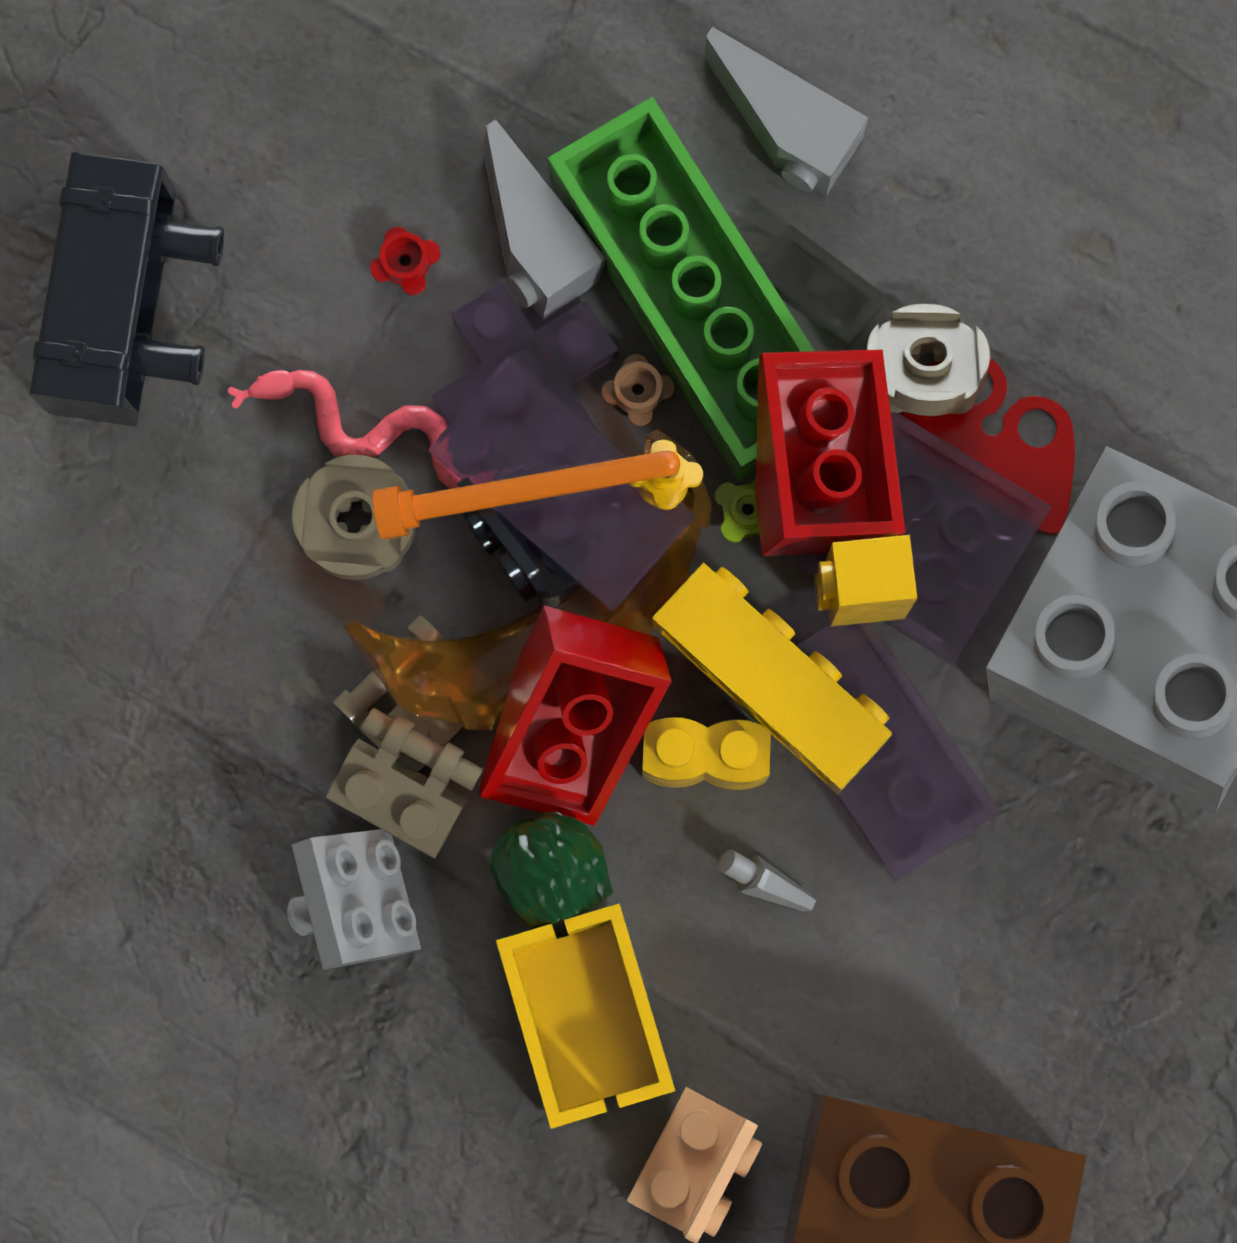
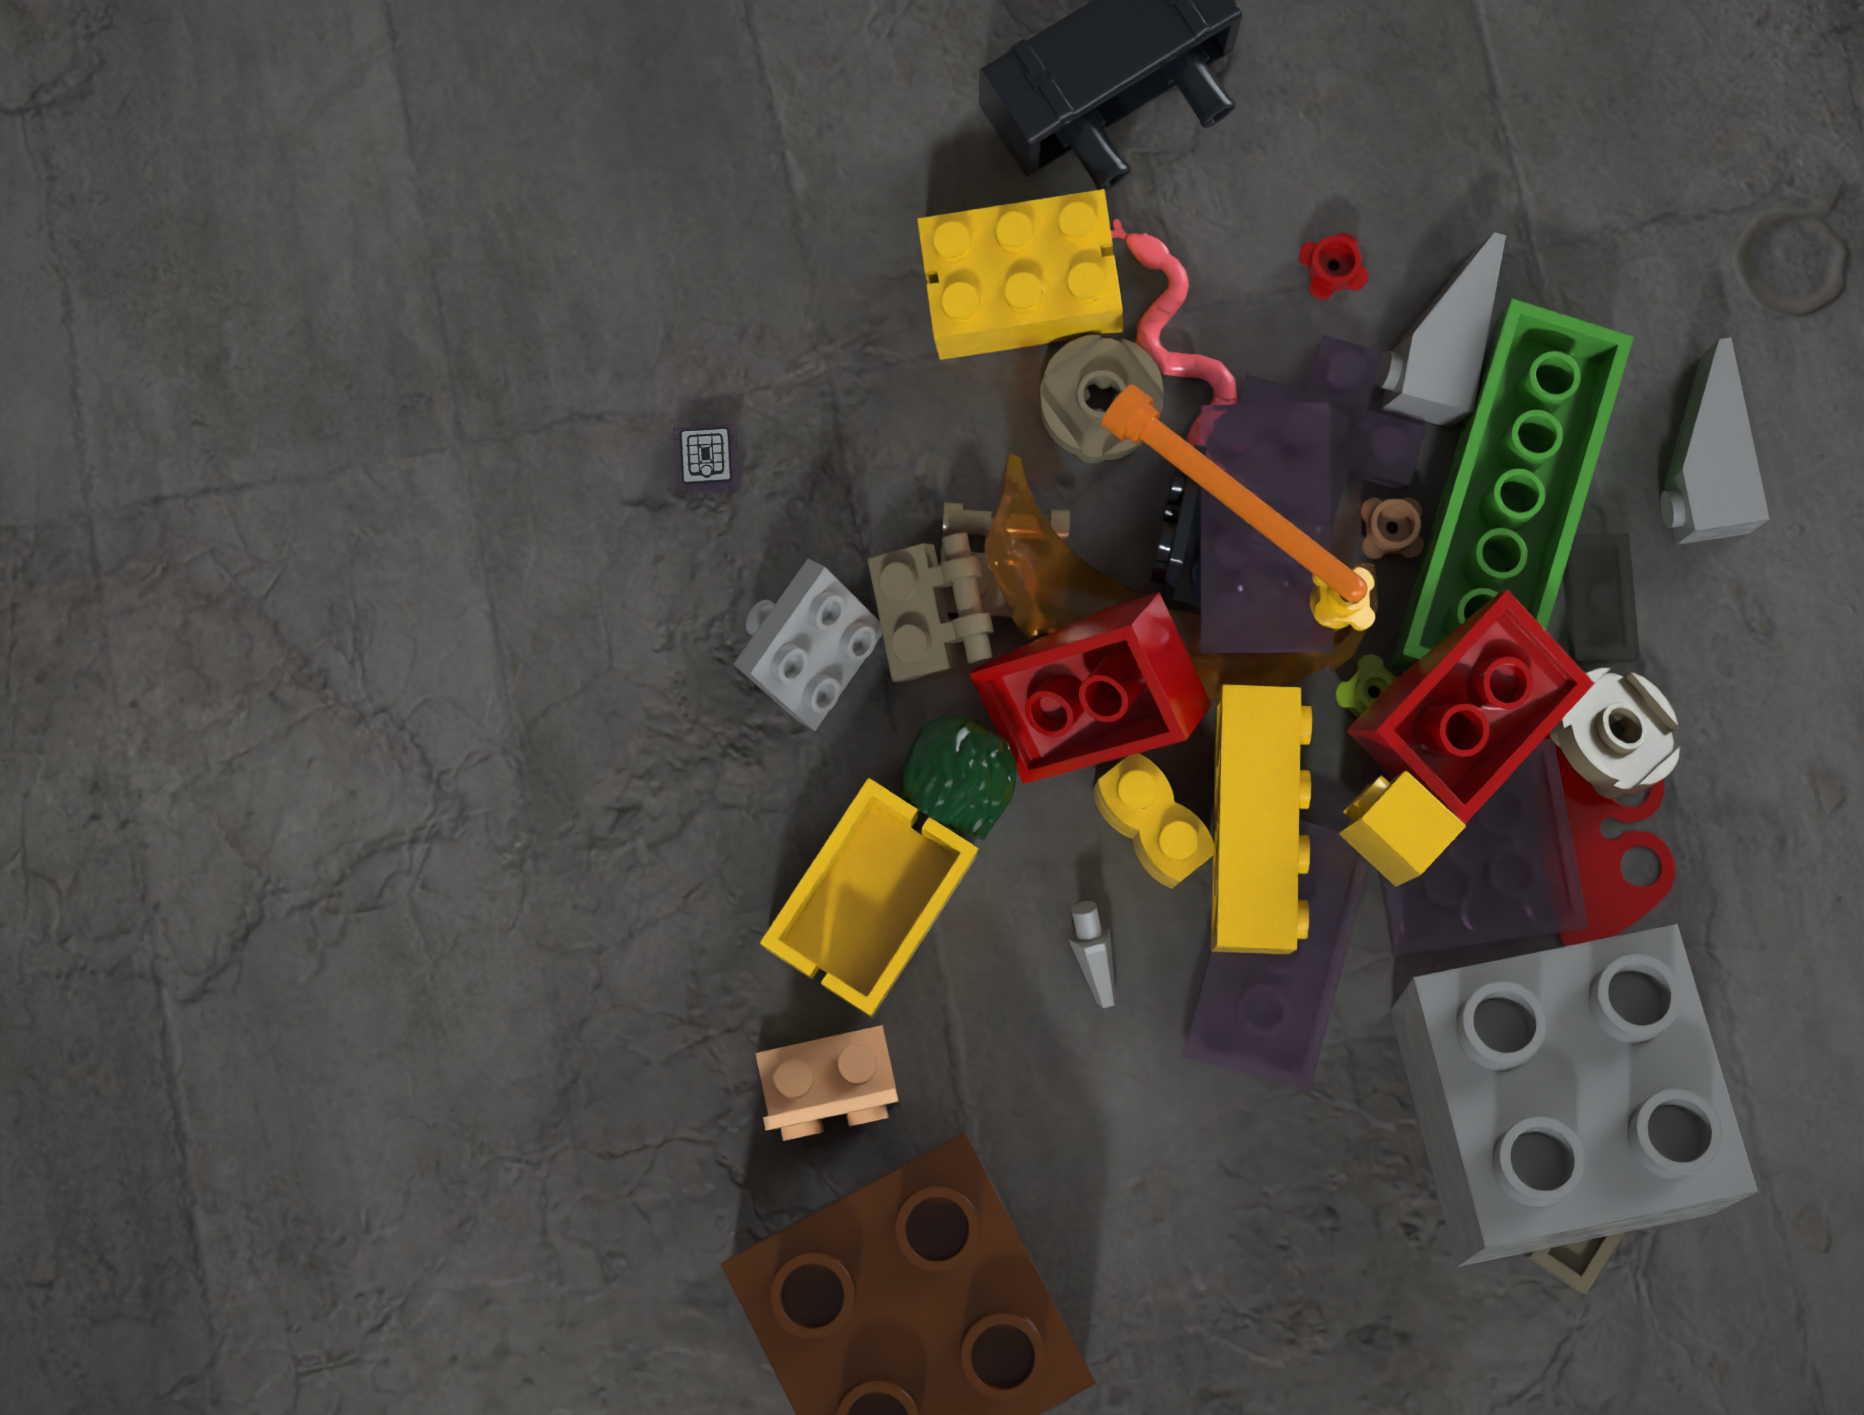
camera: 45 degrees right, 0 degrees up
(141, 853) = (706, 458): none -> tile
(210, 497) = (1021, 274): none -> yellow piece

